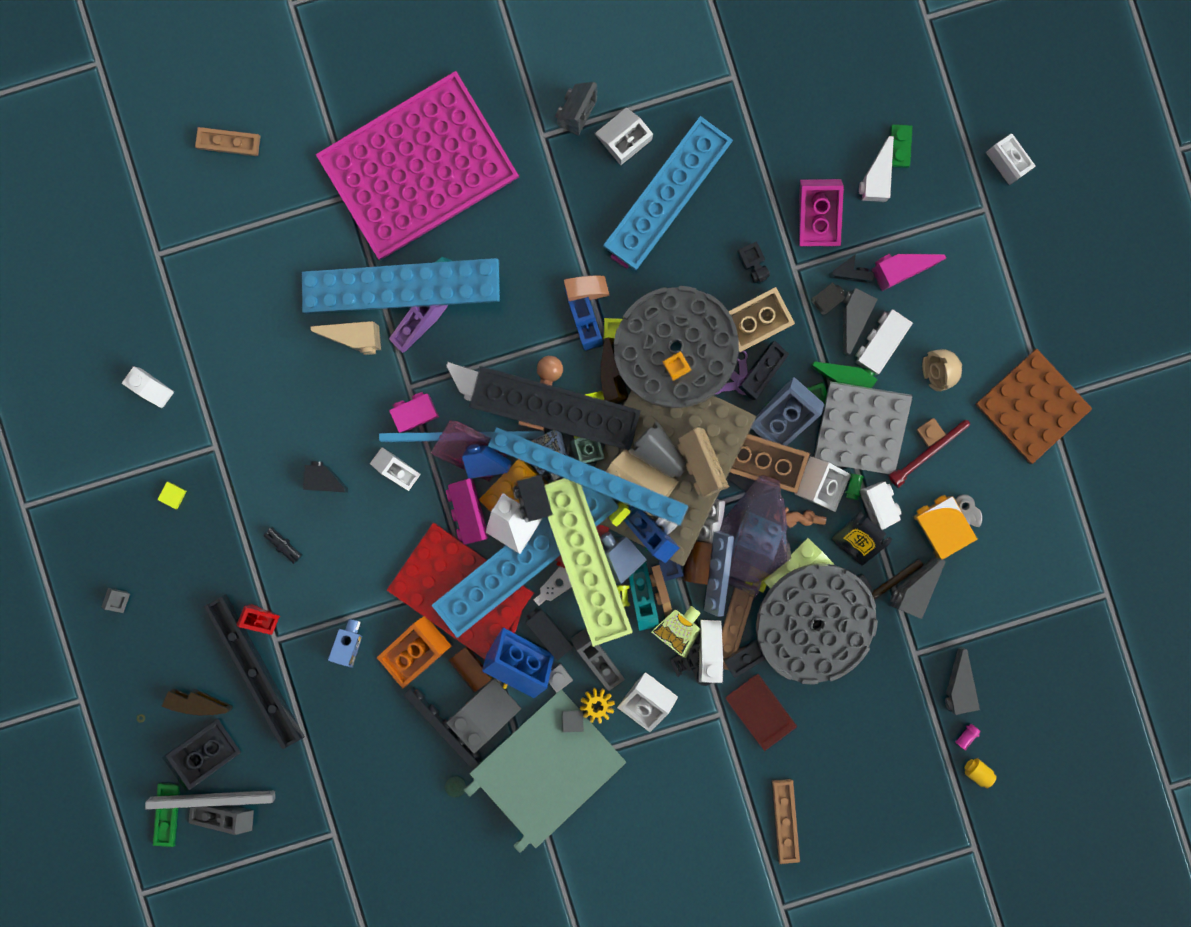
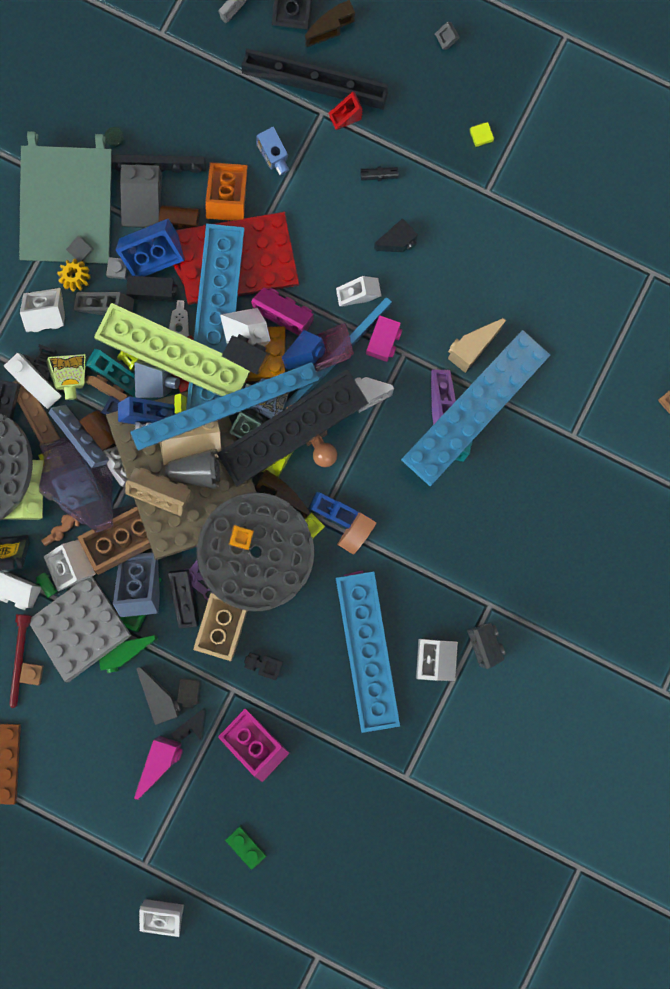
camera: 135 degrees right, 5 degrees down
(147, 387) = (569, 183): white slope -> none
(417, 165) = (549, 500): dark pink plate -> none
(877, 182) = (237, 808): white slope -> none
(883, 341) = (123, 701): white brick -> none
(942, 369) = (64, 723): tan cylinder -> none

